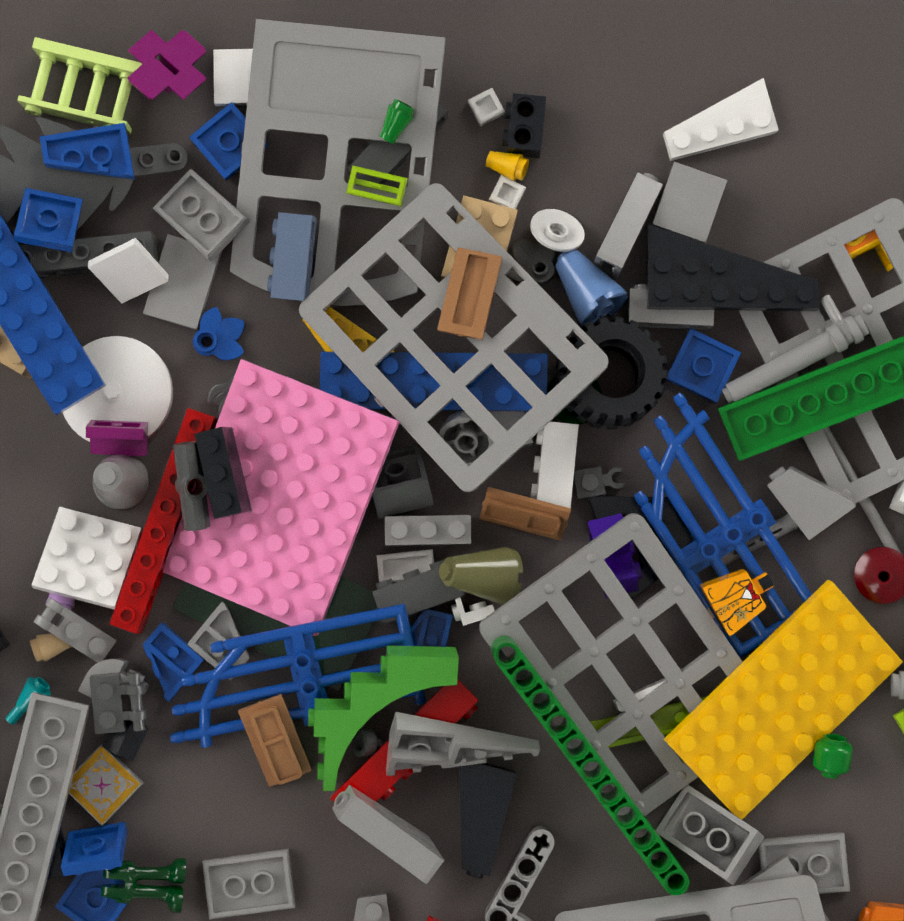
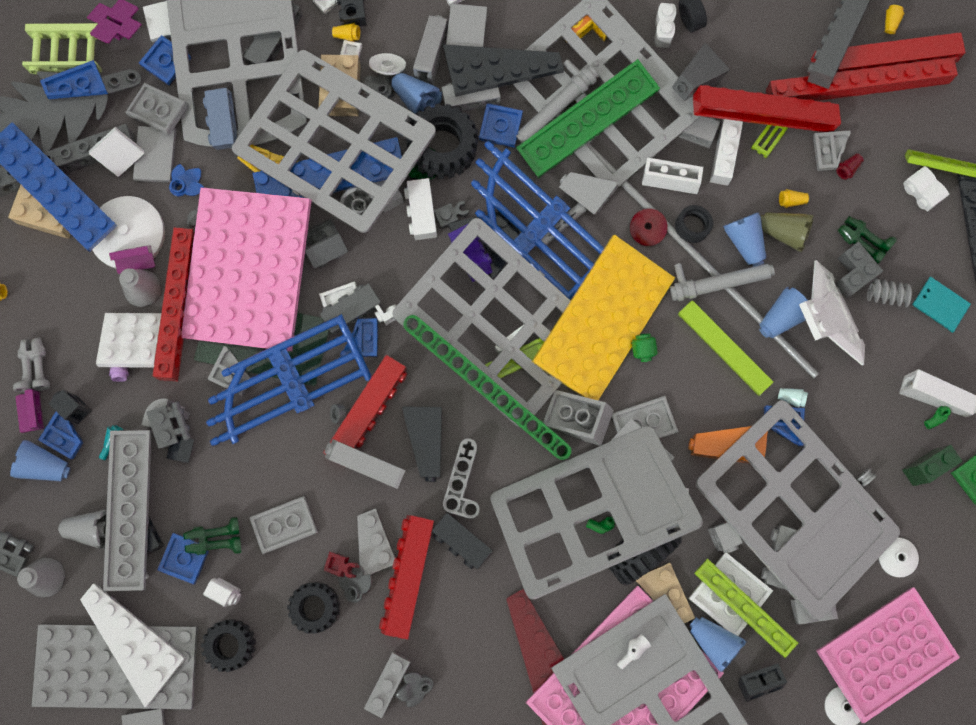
camera: 10 degrees left, 5 degrees down
(47, 646) = (118, 402): tan cone -> none
(48, 220) = (56, 130): blue plate -> none
(76, 631) = (131, 387): light grey plate -> none
(94, 849) = (174, 524): blue plate -> none
(103, 784) = (172, 484): tile -> none
(171, 659) = (199, 391): blue wing -> none
(193, 504) = (181, 260): dark grey piece -> none
(223, 472) = (204, 259): black brick -> none
(275, 740) = (279, 426): medium nougat piece -> none
(396, 120) = (266, 16): green cone -> none
(399, 191) = (279, 61): lime tile -> none
(402, 672) = (317, 400): bright green arch -> none
(427, 530) = (348, 269): light grey brick -> none
(429, 742) = (380, 399): light grey wedge -> none
(469, 293) = (337, 109): medium nougat piece -> none
(485, 573) = (388, 284): olive cone -> none
(525, 513) = (408, 243): medium nougat piece -> none
(736, 598) = (555, 259): light orange torso -> none

